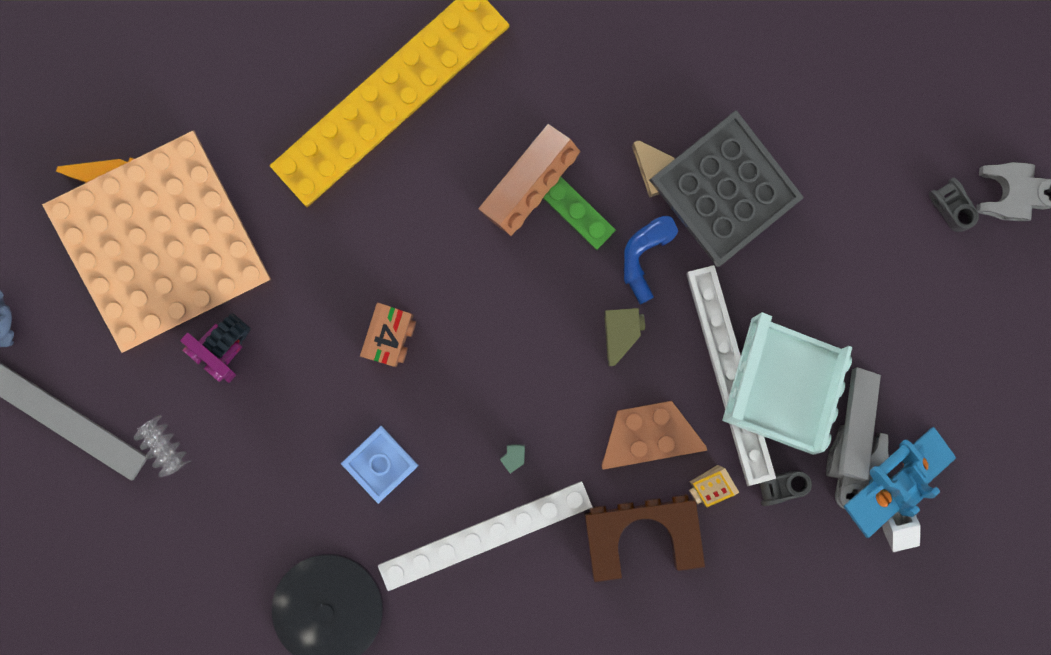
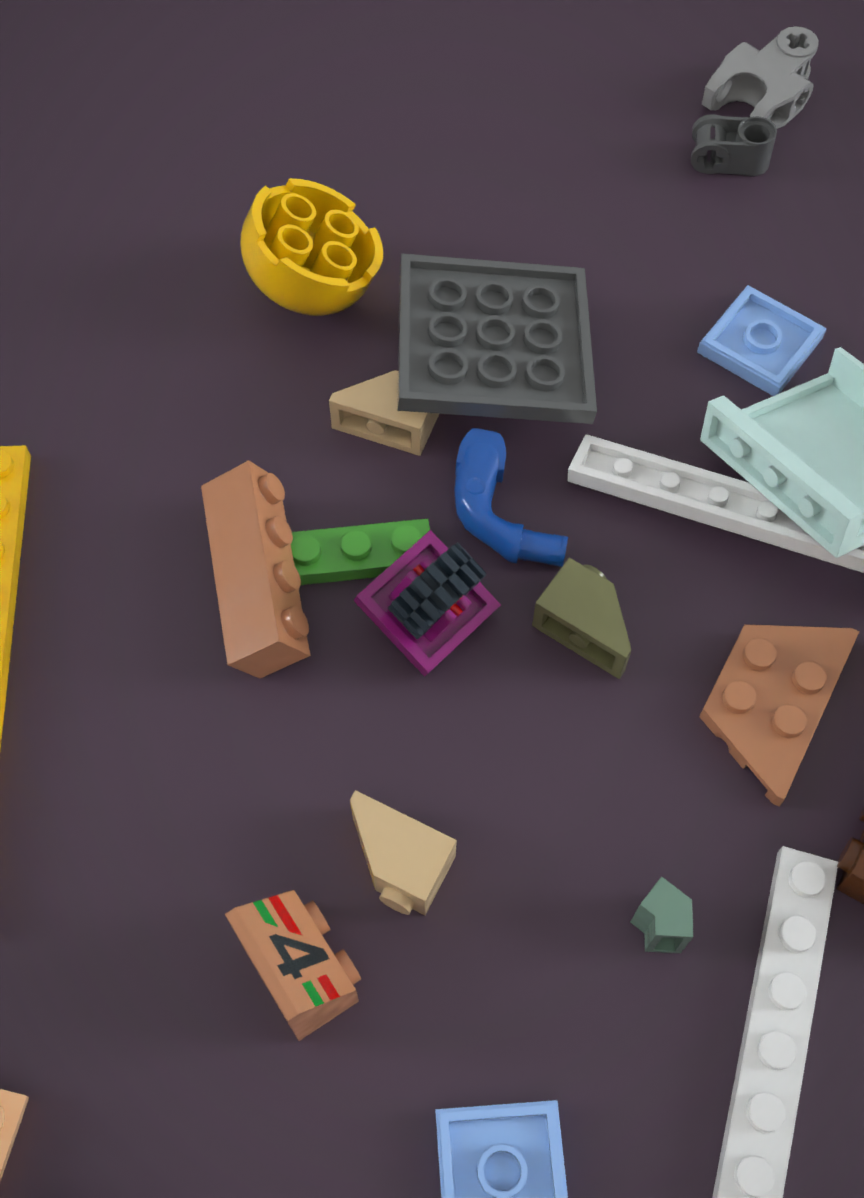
camera: 50 degrees left, 25 degrees down
(459, 340) = (401, 854): none -> tan slope
(573, 263) = (428, 601): none -> magenta plate
(708, 63) = (309, 248): none -> yellow cylinder
(840, 304) = (761, 340): none -> light blue tile

